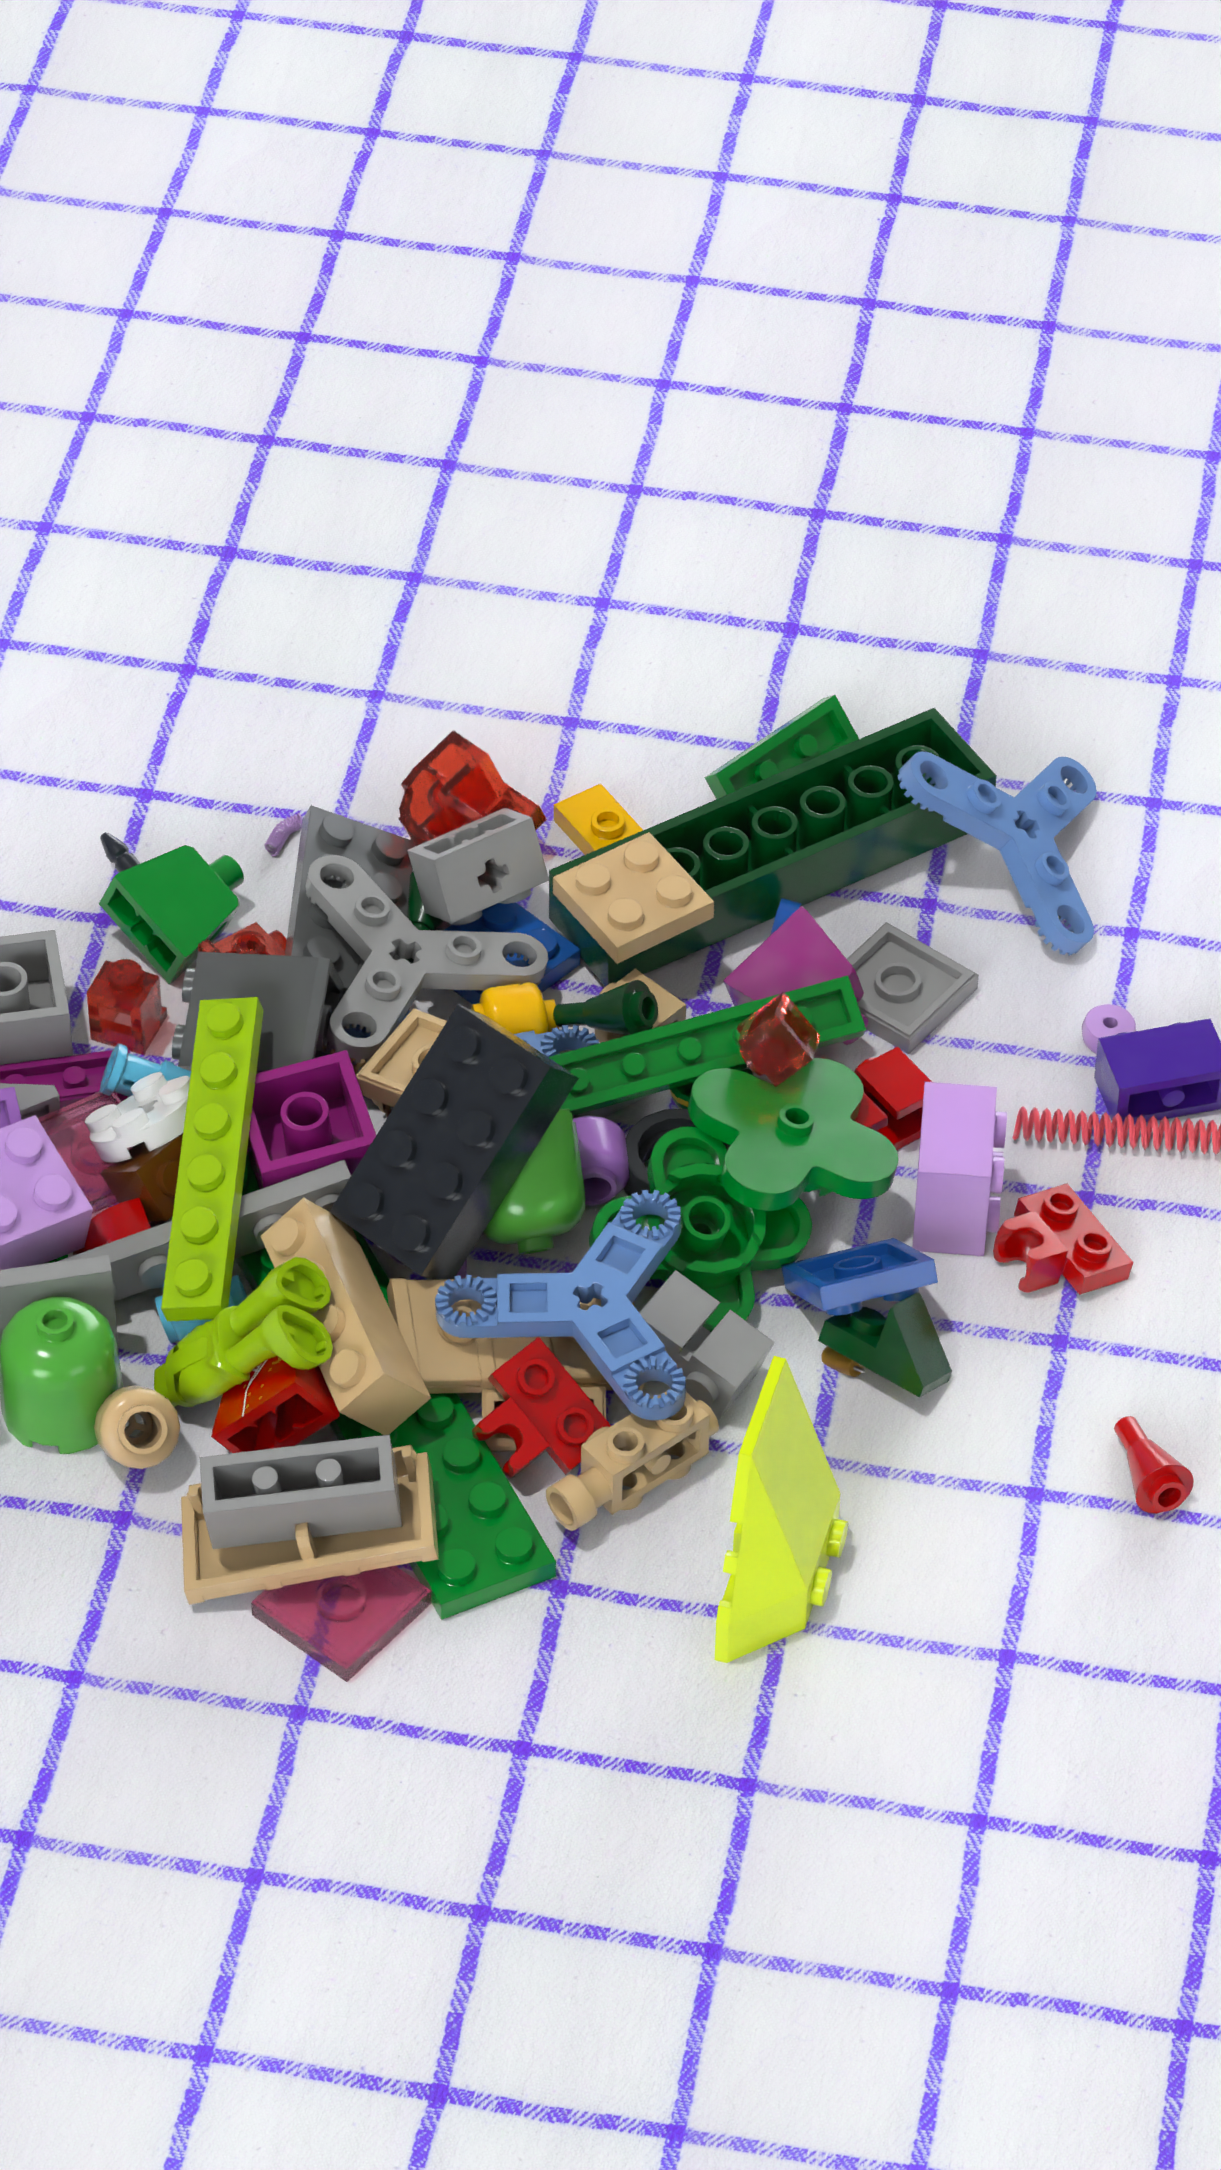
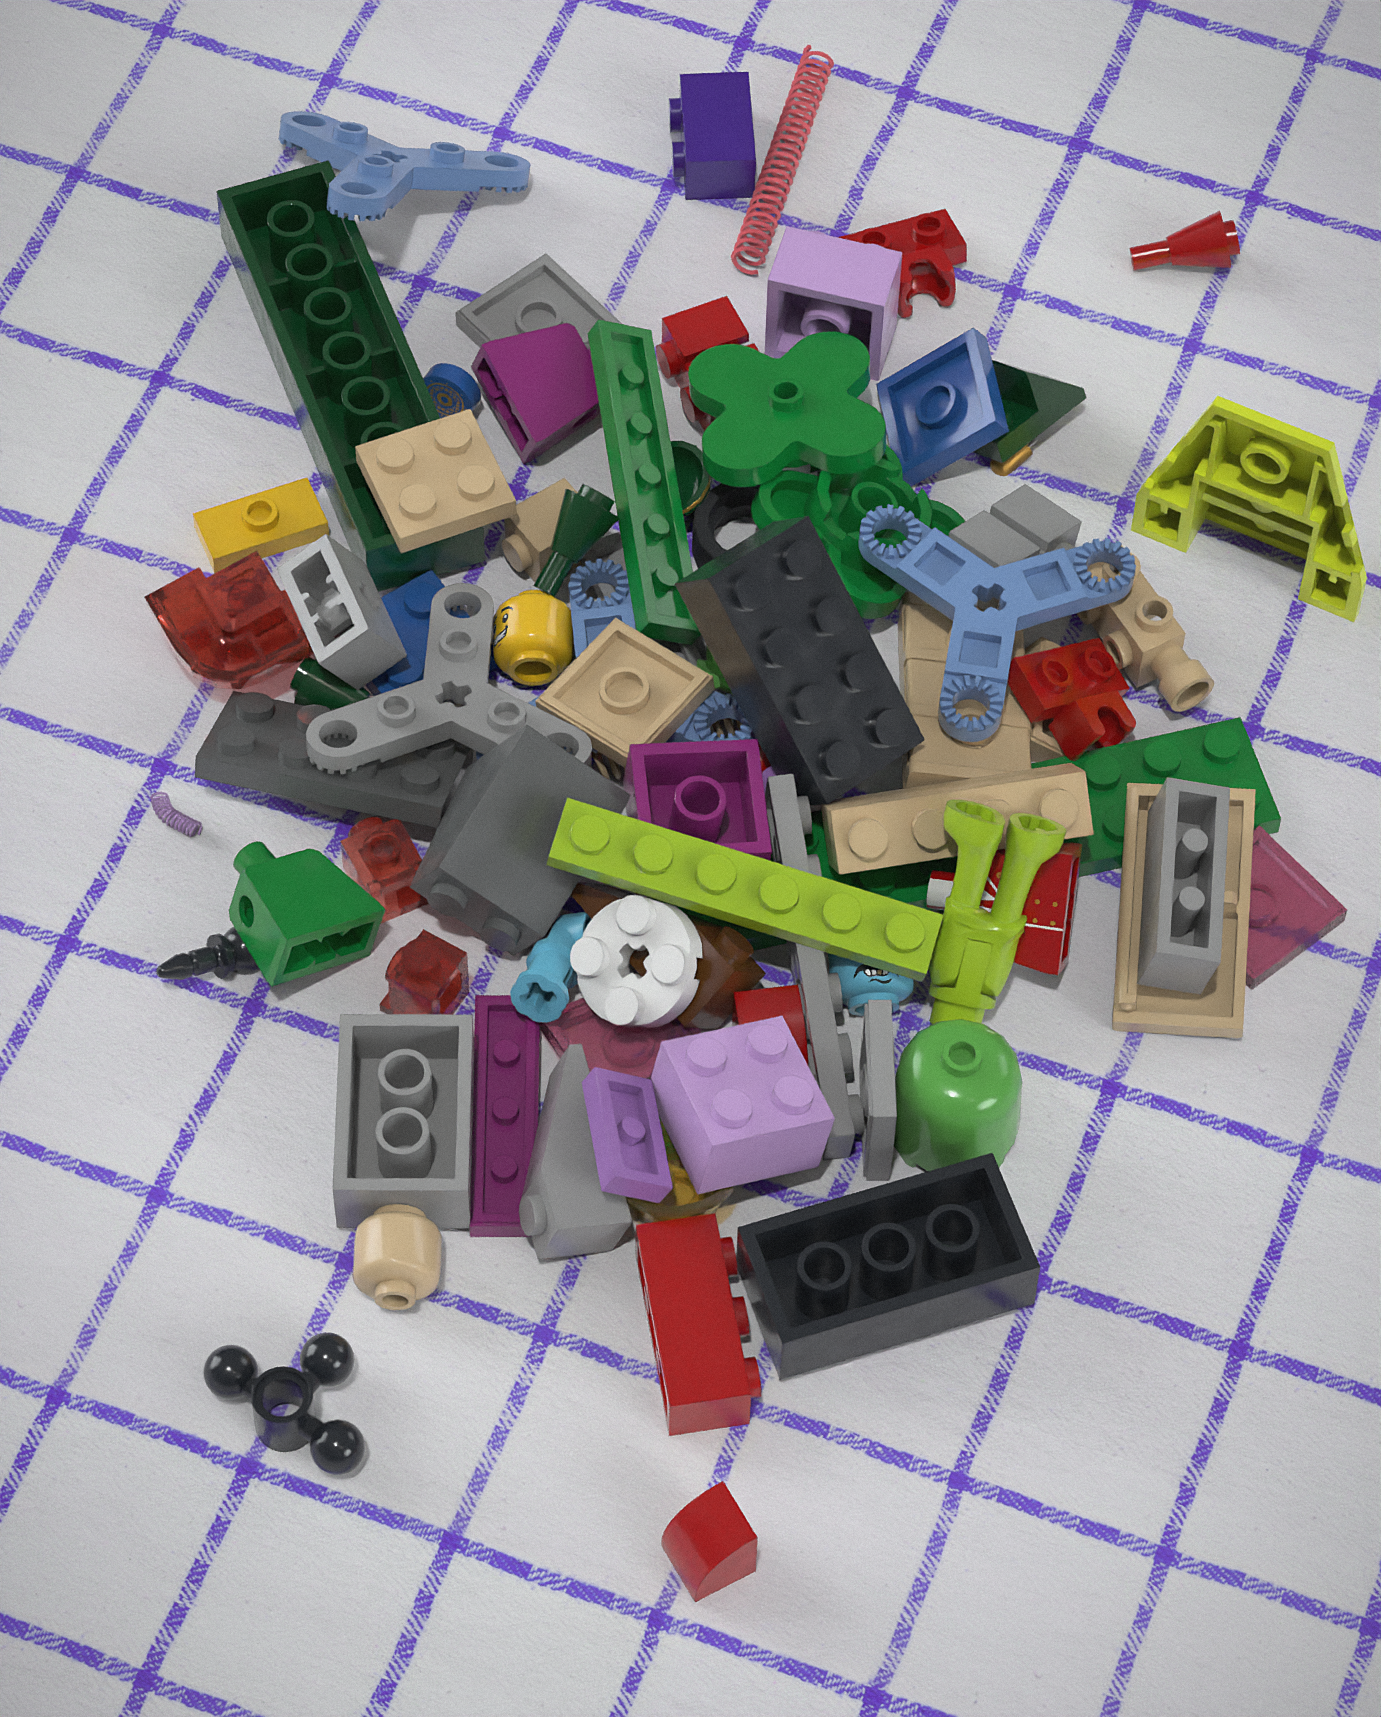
camera: 80 degrees left, 10 degrees up
(157, 1435) = (1043, 1034): tan head -> none
(777, 1040) = (687, 386): clear red brick -> none
(804, 737) = (207, 352): green plate -> none
(1105, 1021) = (639, 169): lavender piece -> none

